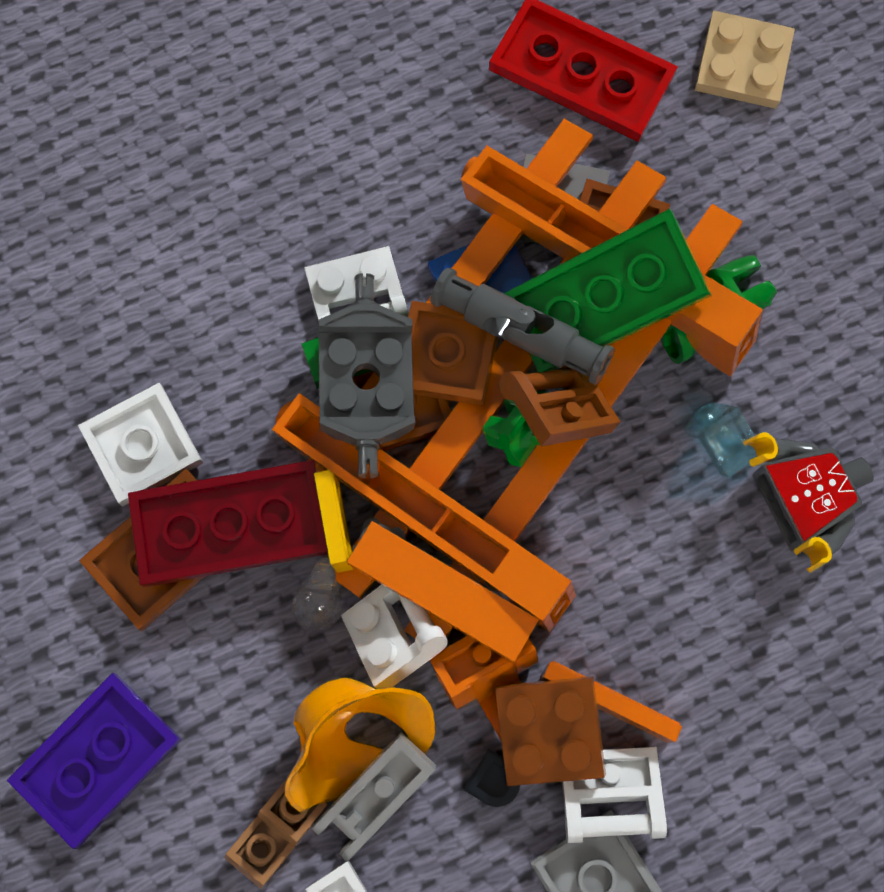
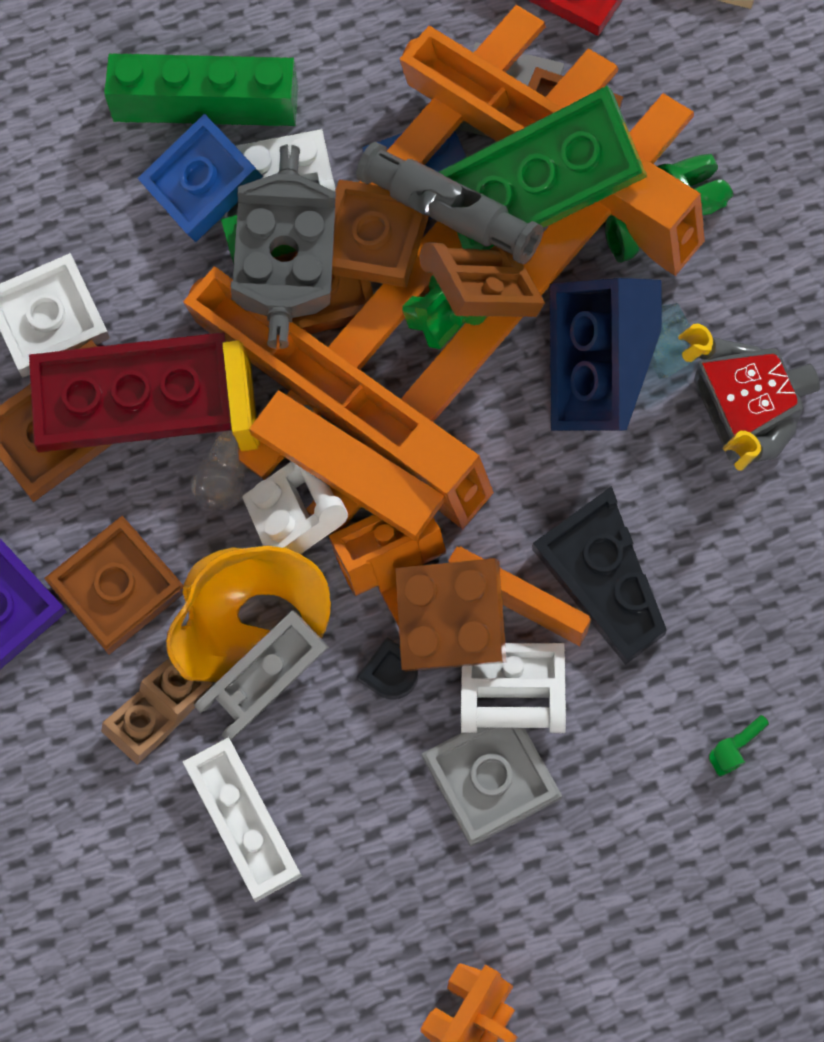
camera: 10 degrees right, 5 degrees down
(226, 712) = (115, 585): none -> dark orange plate
(272, 213) = (187, 86): none -> green brick
(278, 302) = (199, 177): none -> blue plate
(672, 460) = (601, 350): none -> dark blue slope
(684, 673) = (601, 573): none -> black wing
(812, 843) = (726, 756): none -> green hand

